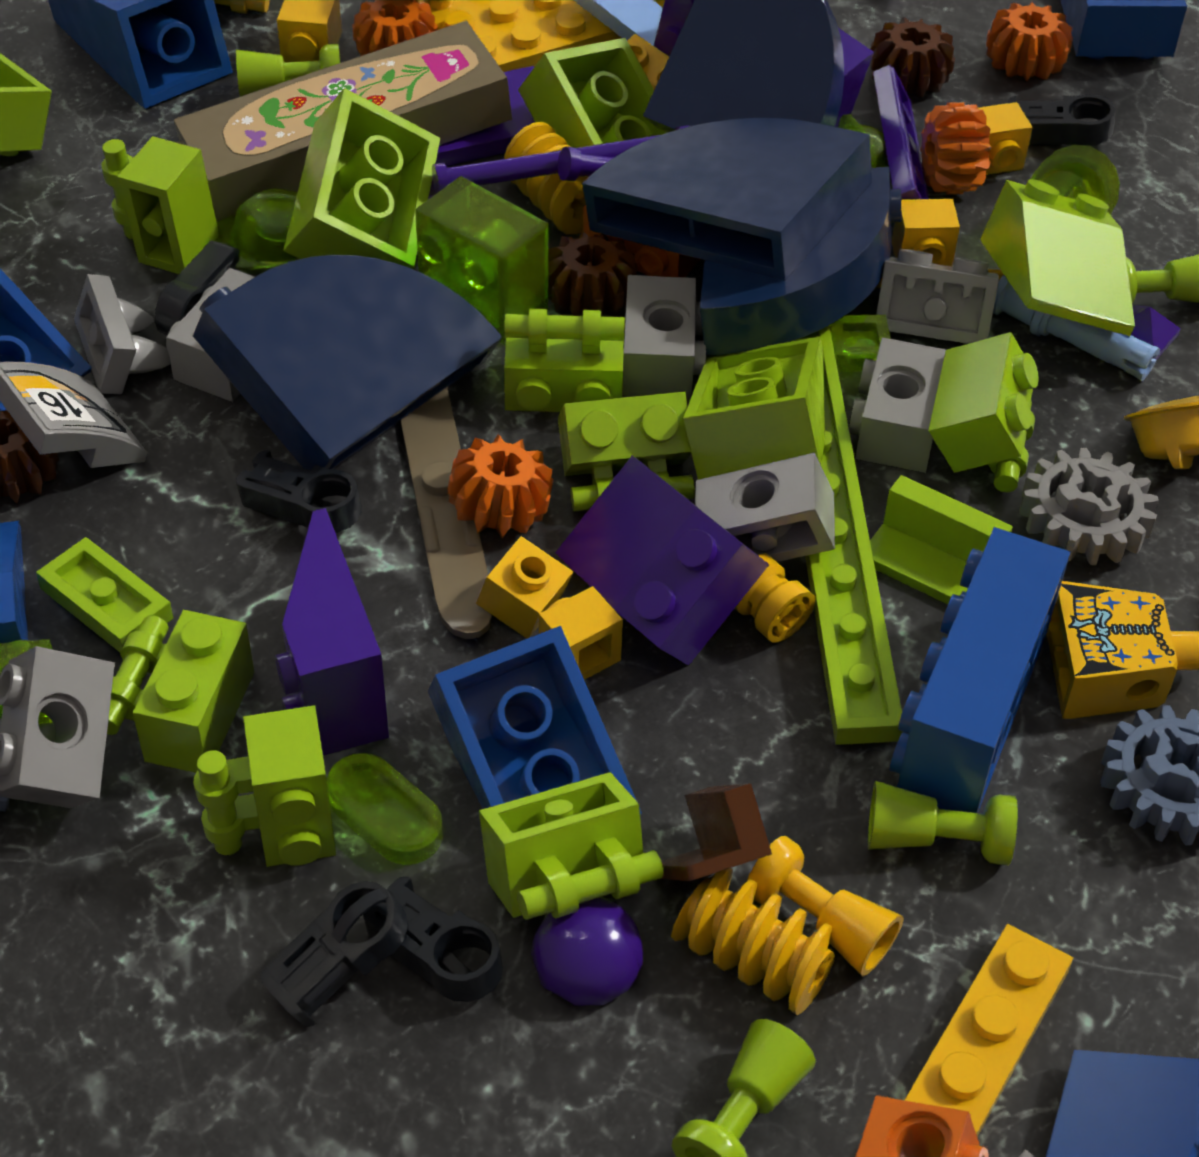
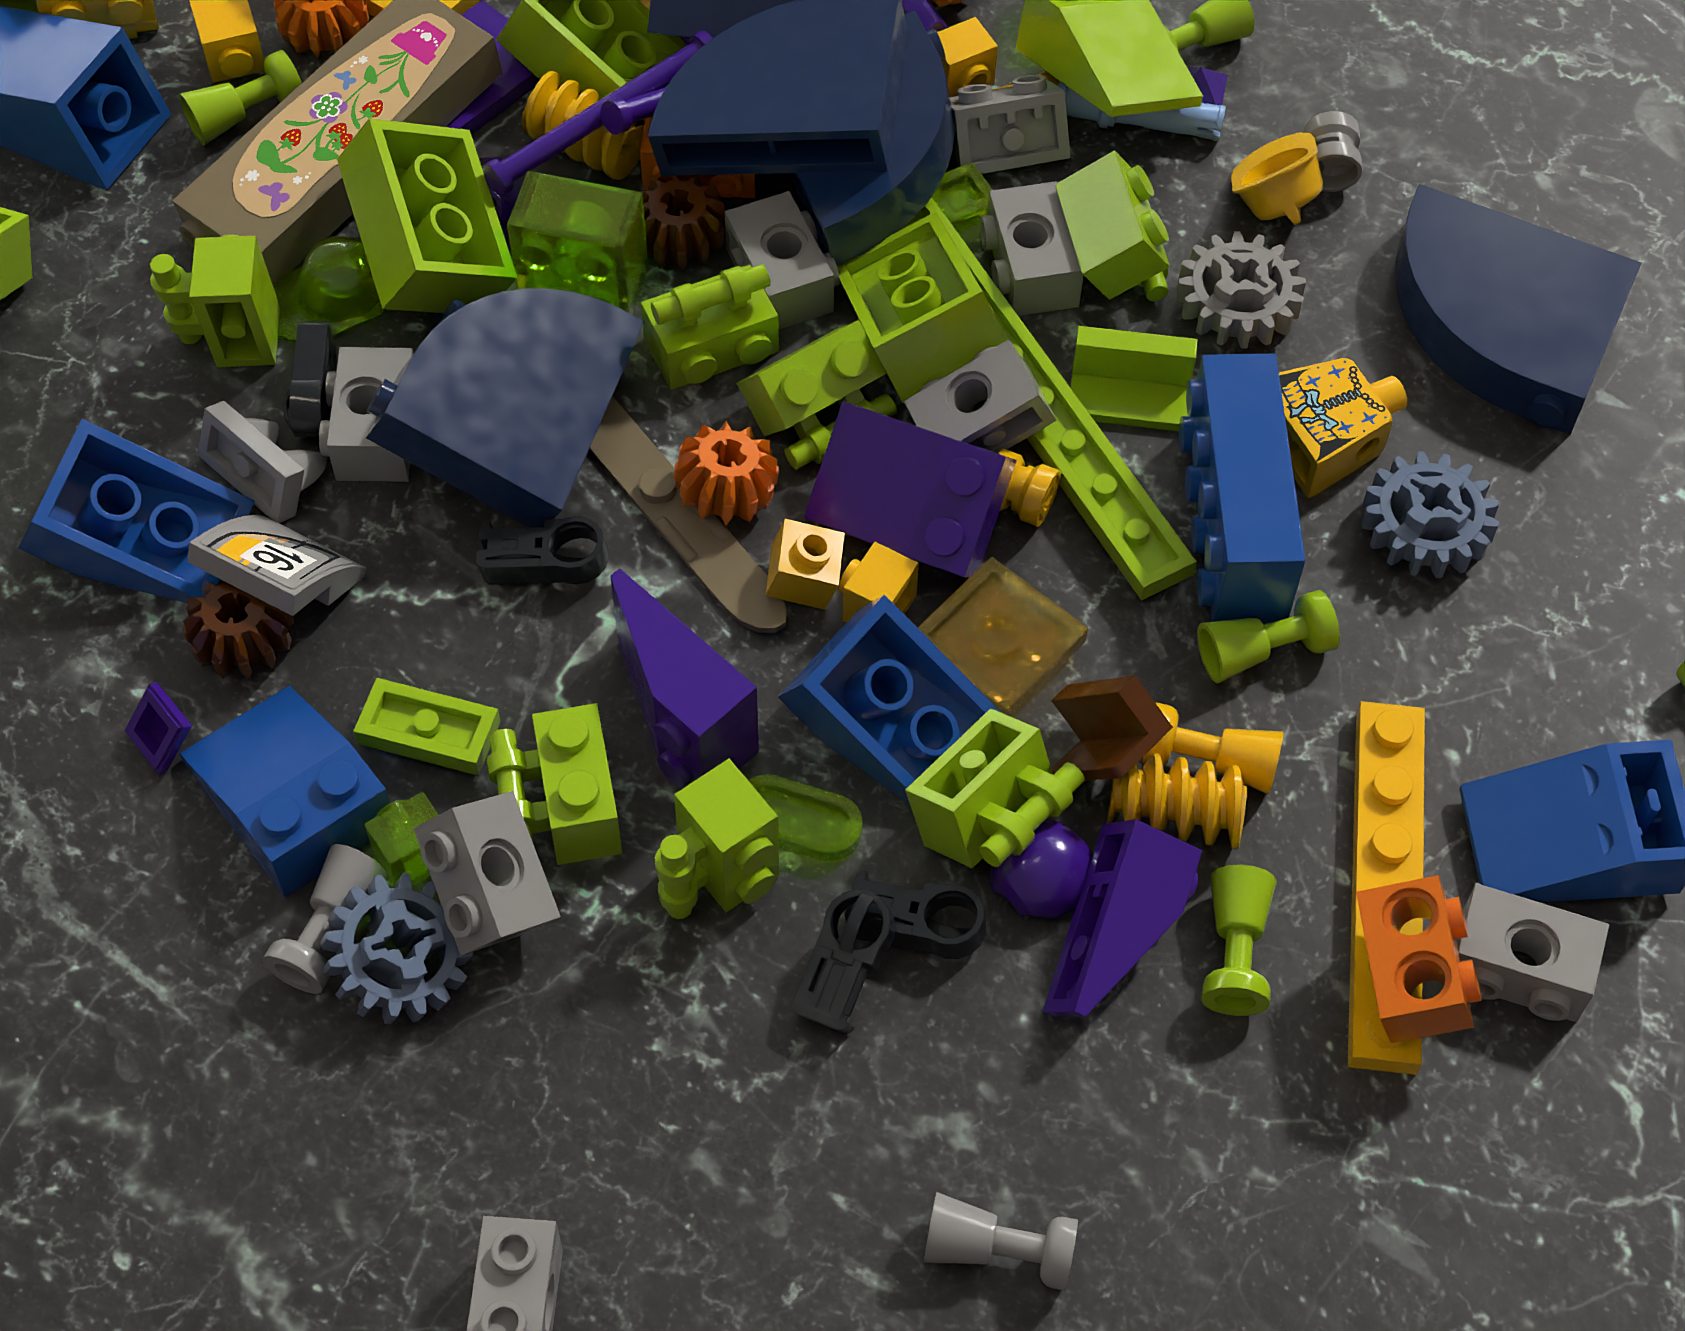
camera: 25 degrees left, 10 degrees up
(649, 1011) = (1126, 904): none -> dark purple slope
(673, 722) = (1004, 635): none -> clear yellow plate

